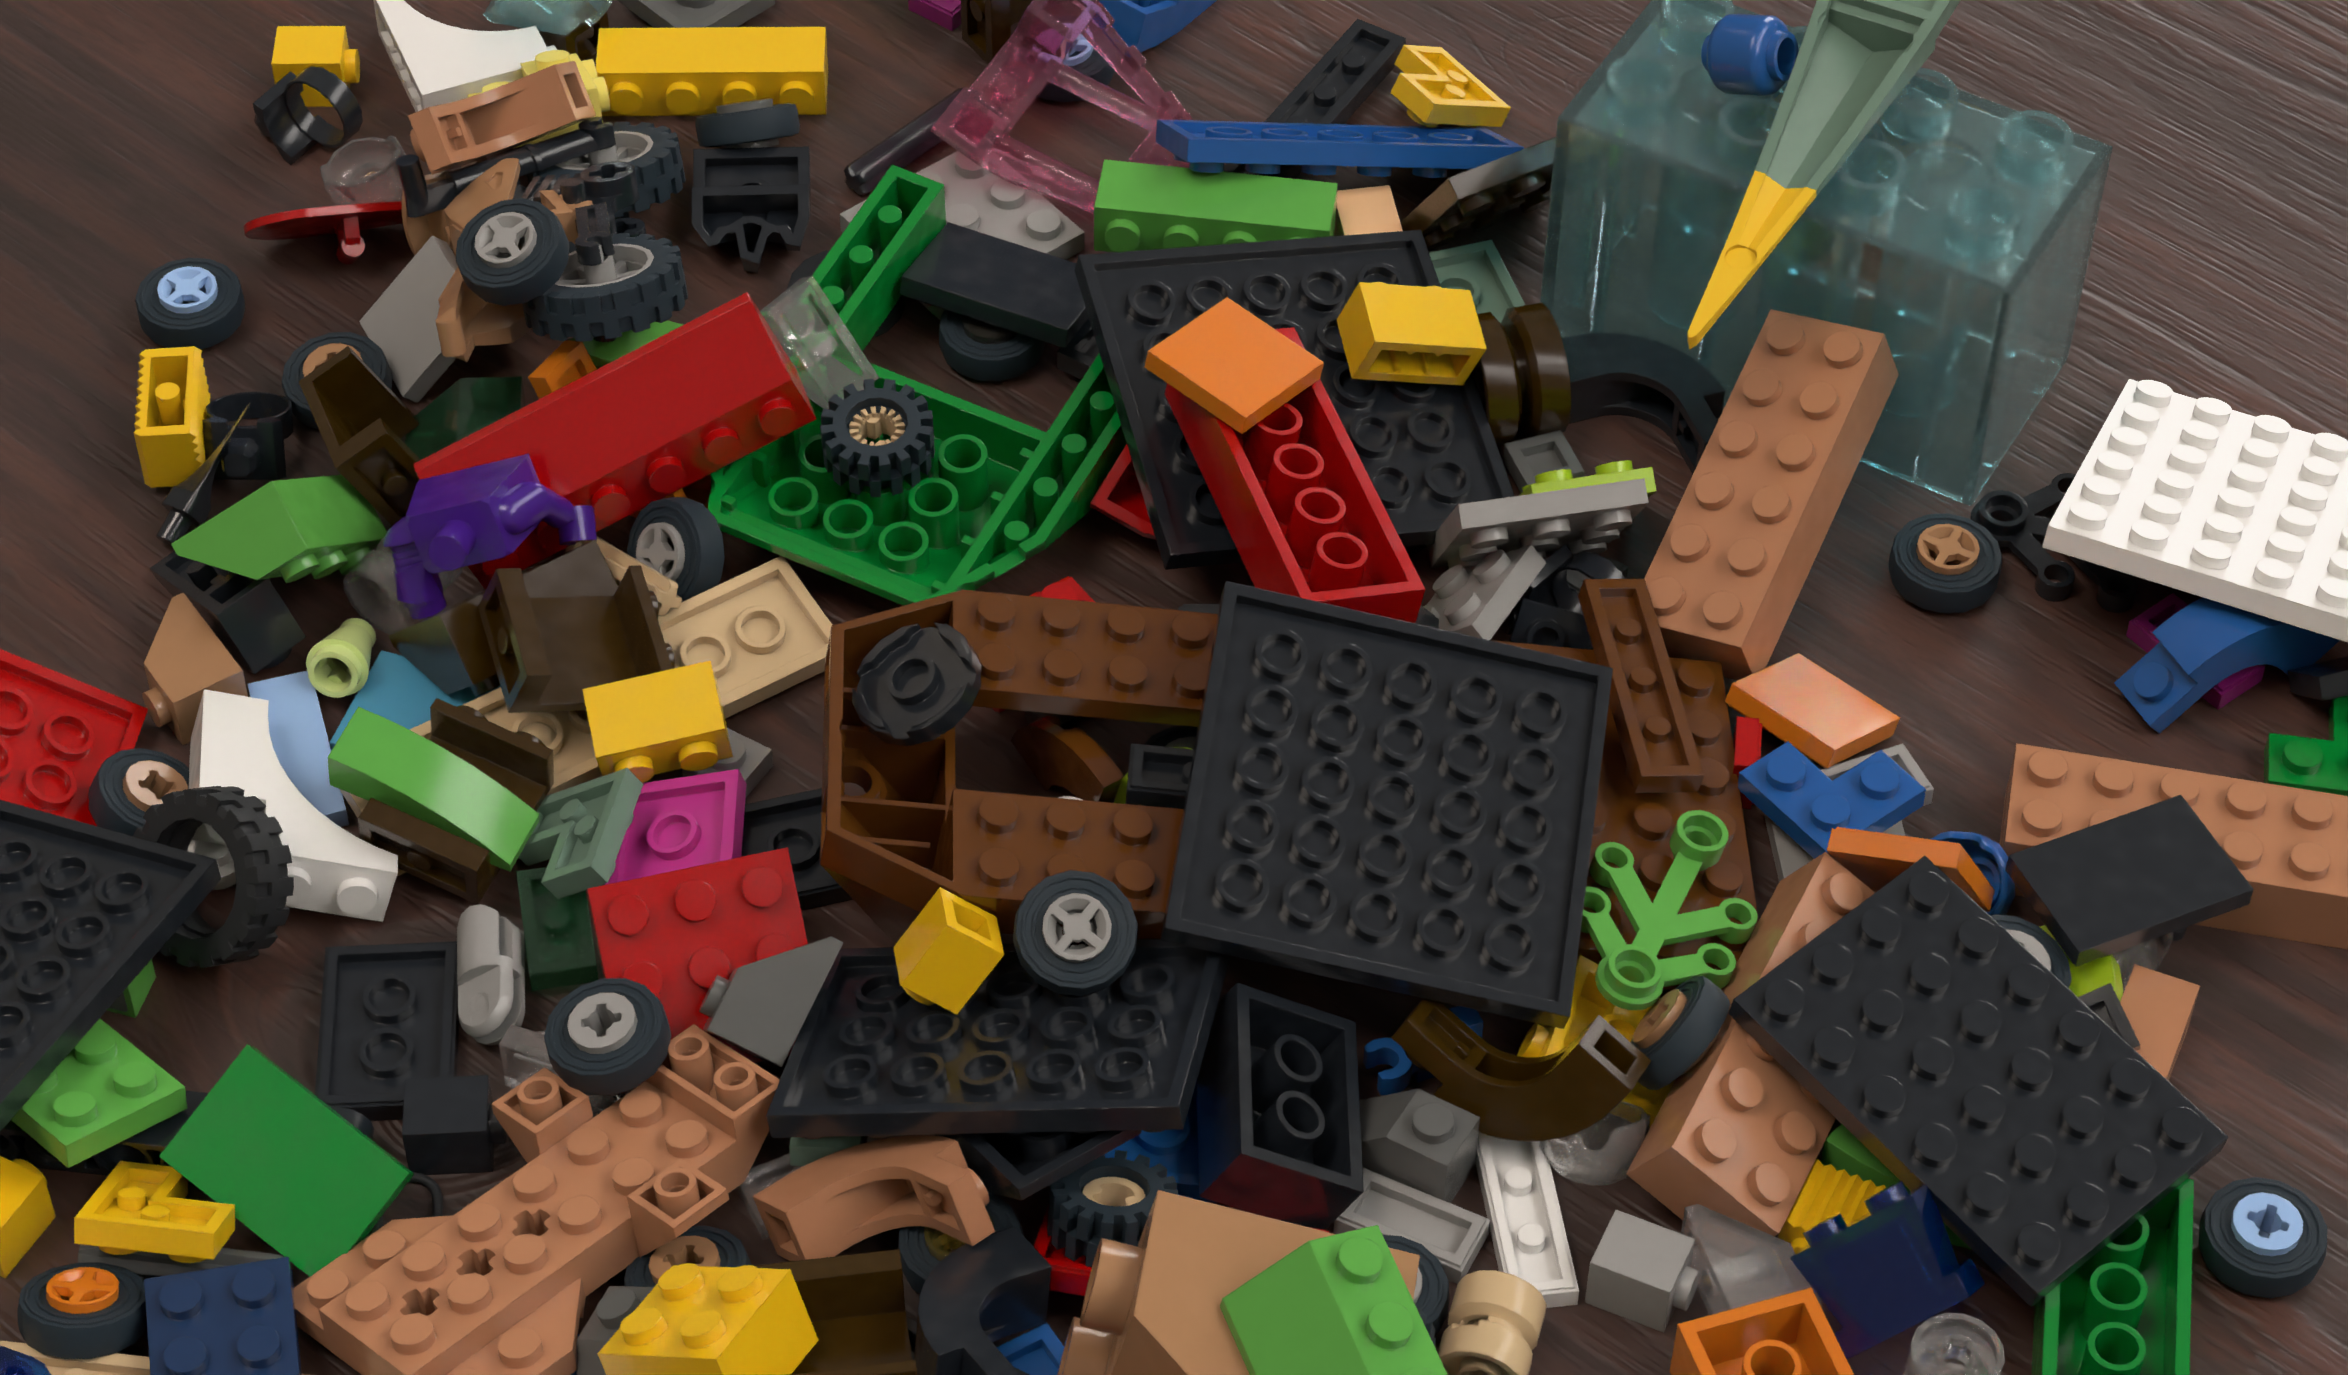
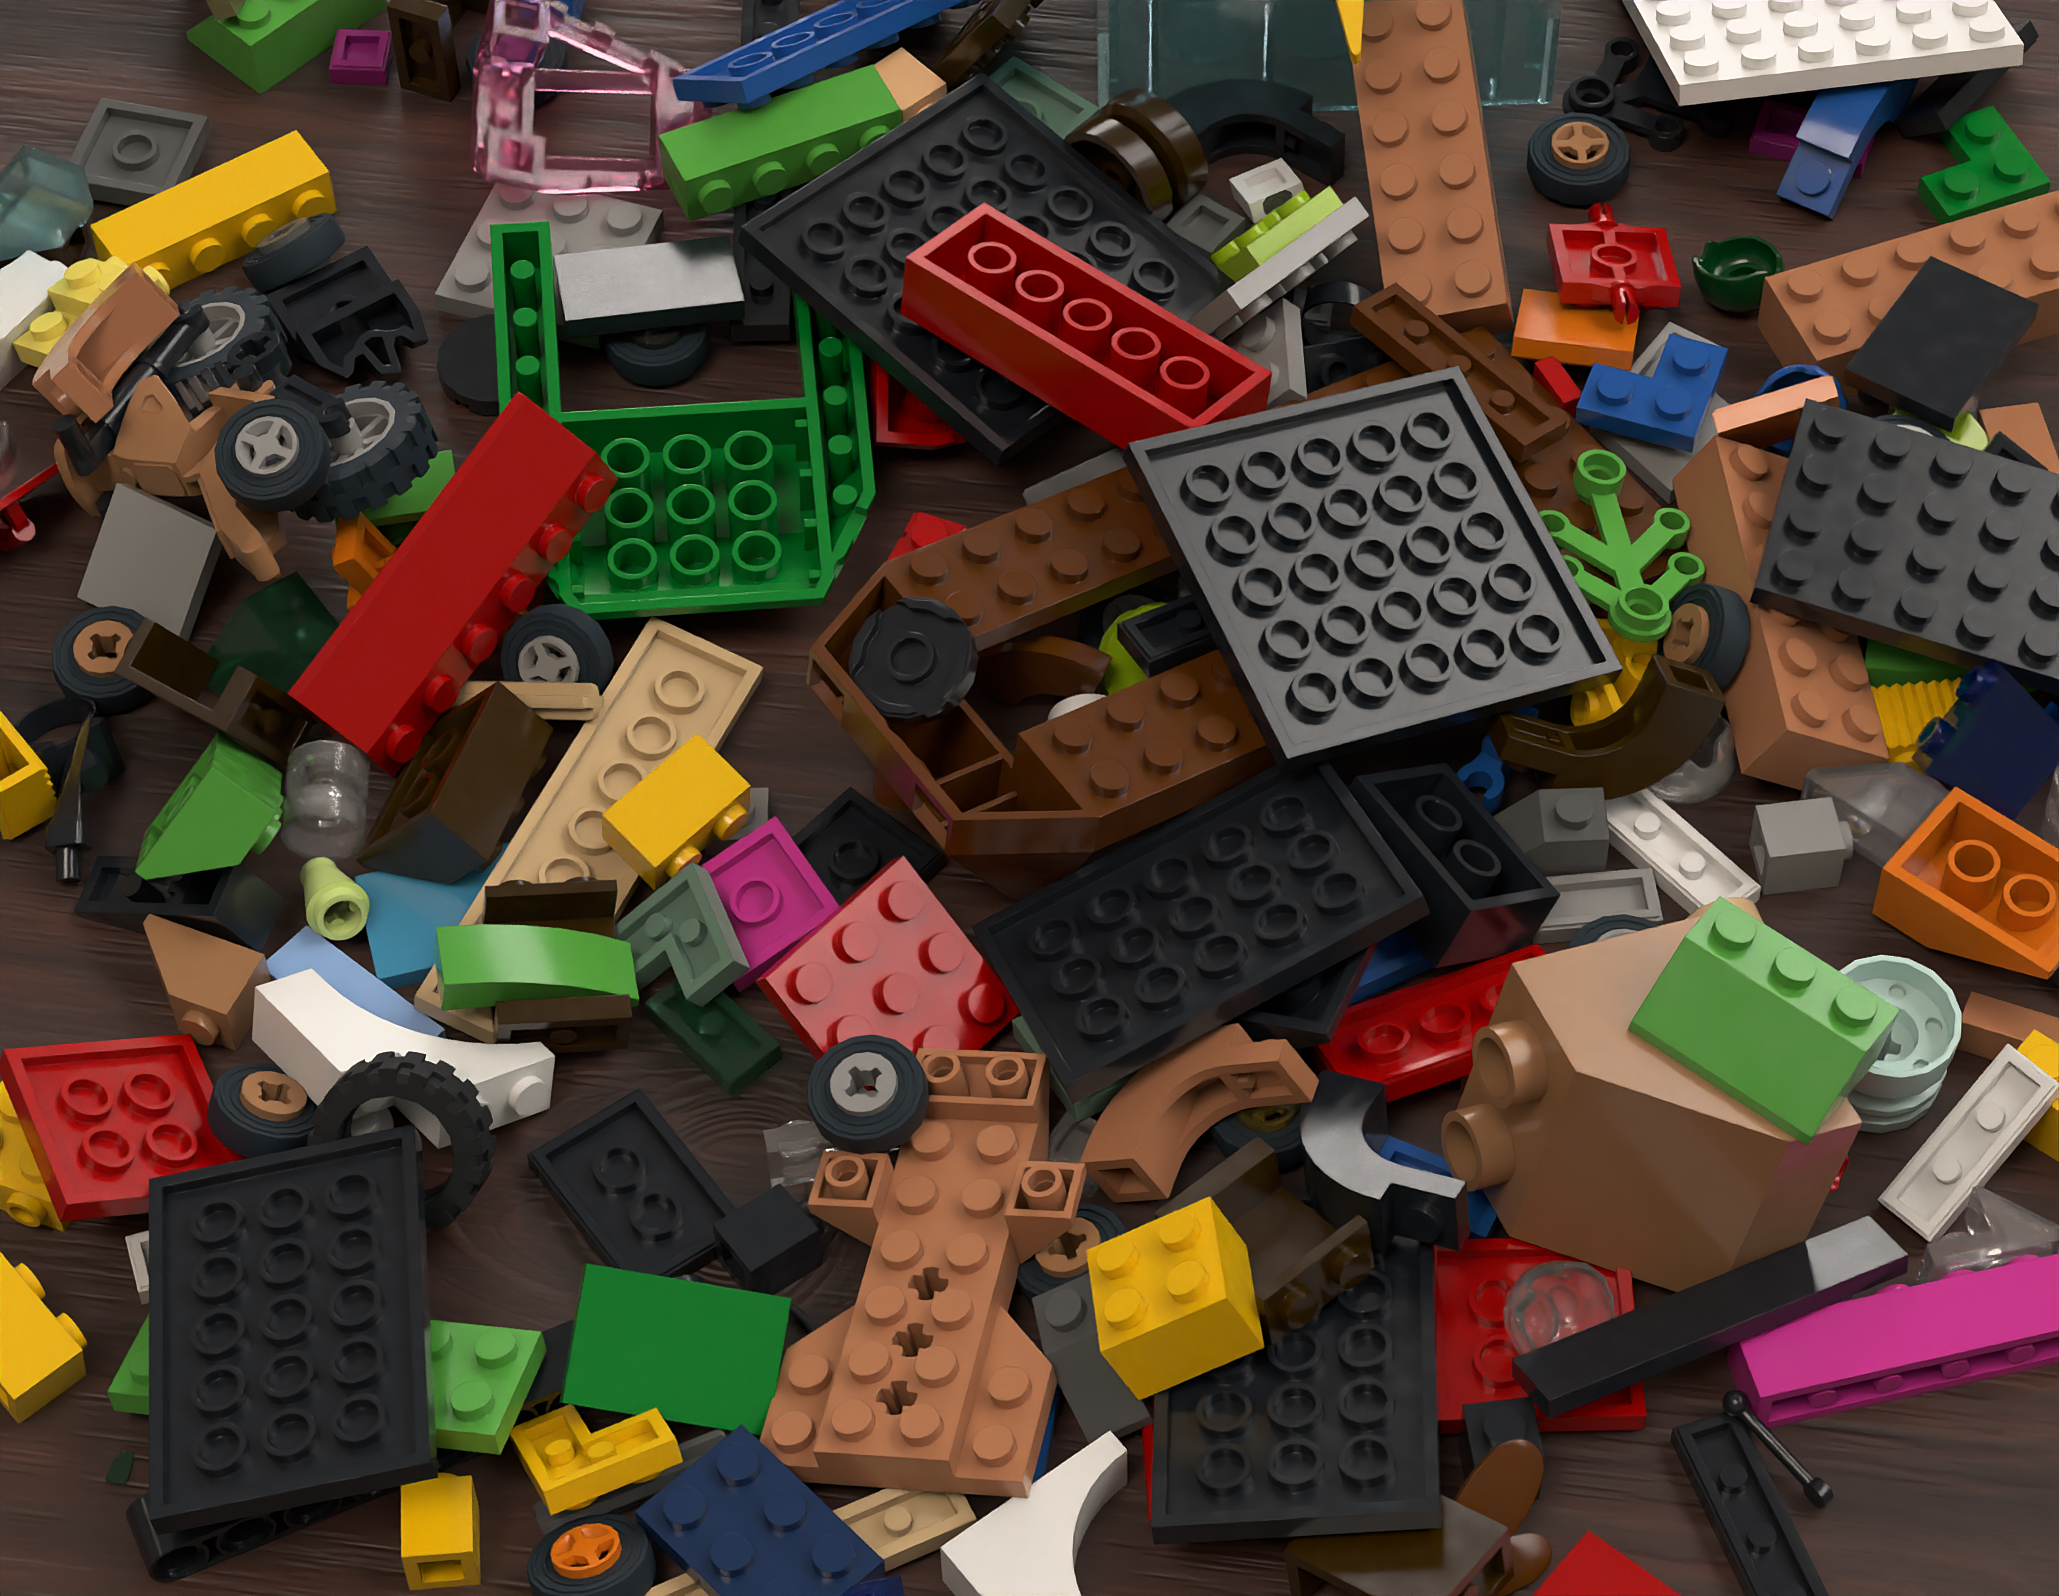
camera: 30 degrees left, 5 degrees up
(473, 520) = (391, 719): dark purple torso -> none
(489, 974) = (695, 1102): light grey arm -> none
(564, 644) = (557, 778): dark brown panel -> none
(769, 1000) = (975, 990): dark grey slope -> none
(817, 341) = (574, 406): clear slope -> none
(869, 415) = (675, 443): black bush -> none
(897, 149) = (439, 201): black axle -> none
(948, 951) = (1113, 872): yellow brick -> none
(1090, 912) = (1231, 787): black wheel -> none
(1104, 1201) = (1388, 1018): black bush -> none
(1234, 365) = (975, 257): orange tile -> none
(1411, 334) = (1057, 164): yellow brick -> none
(1641, 449) = (1265, 188): none -> white plate
(1892, 669) = (1613, 265): none -> red plate
(1996, 727) = (1734, 272): none -> dark green hair

